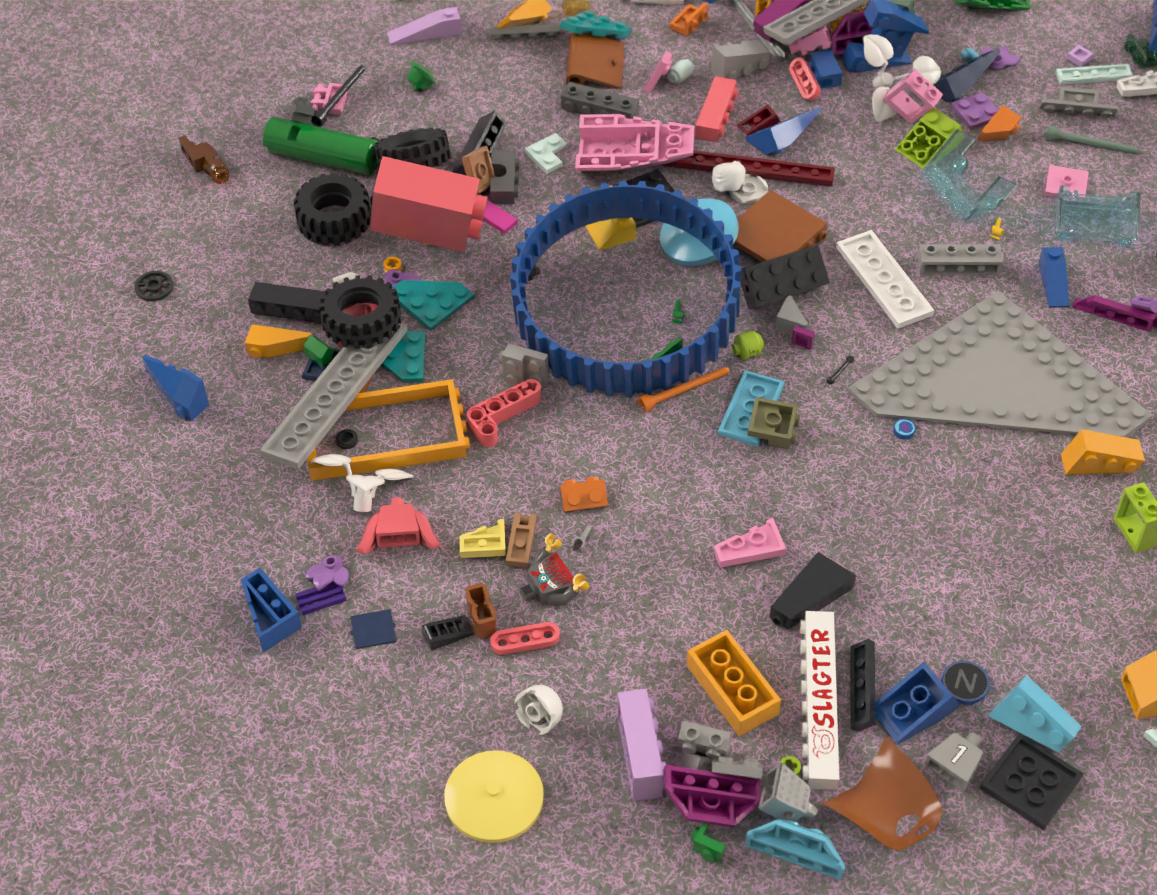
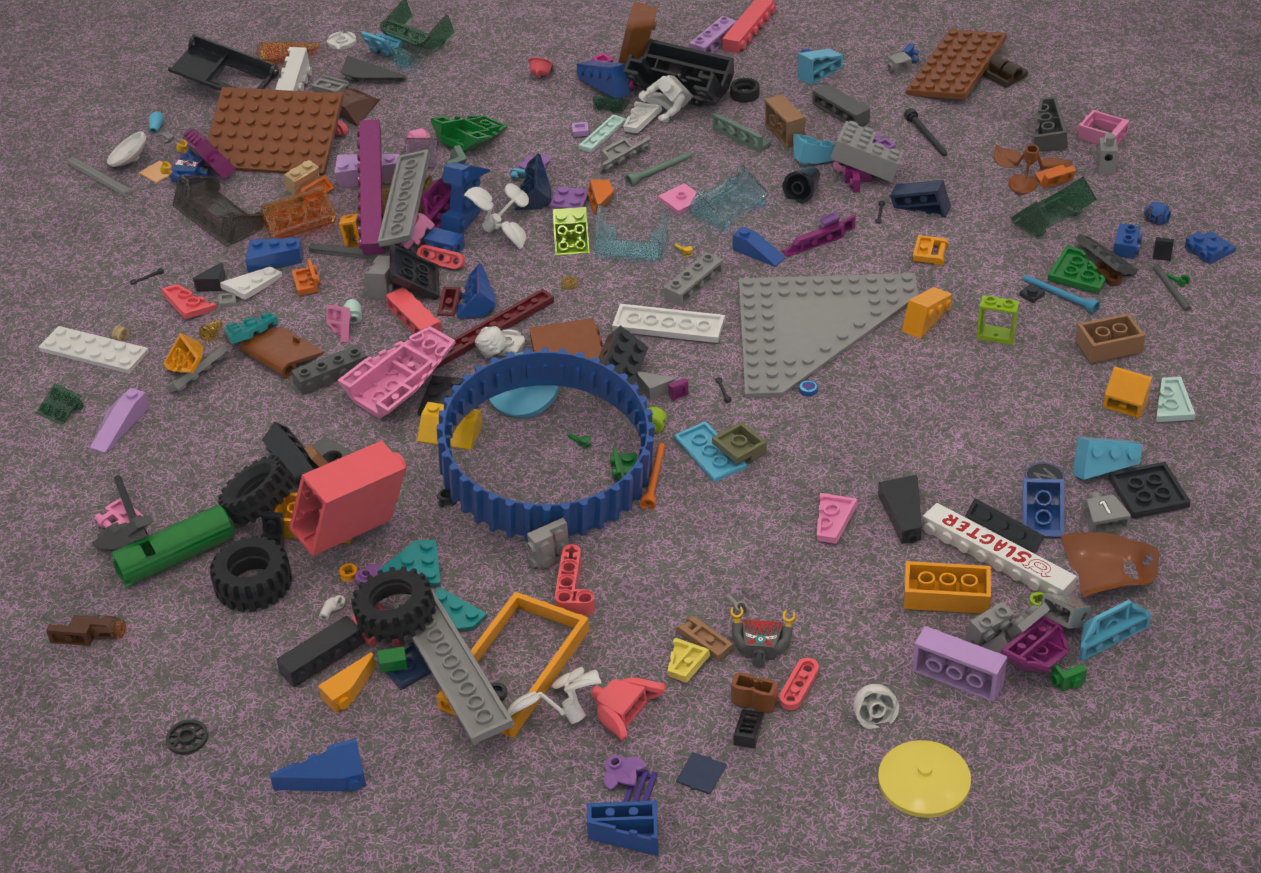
camera: 50 degrees left, 10 degrees down
(420, 77) = (172, 452): green piece -> none
(544, 152) = (337, 427): light aqua plate -> none
(583, 494) = (698, 580): orange bracket -> none
(760, 74) = (414, 272): none -> black plate
(867, 180) = (569, 282): none -> clear yellow tile
(904, 104) = (532, 226): bright pink window -> none

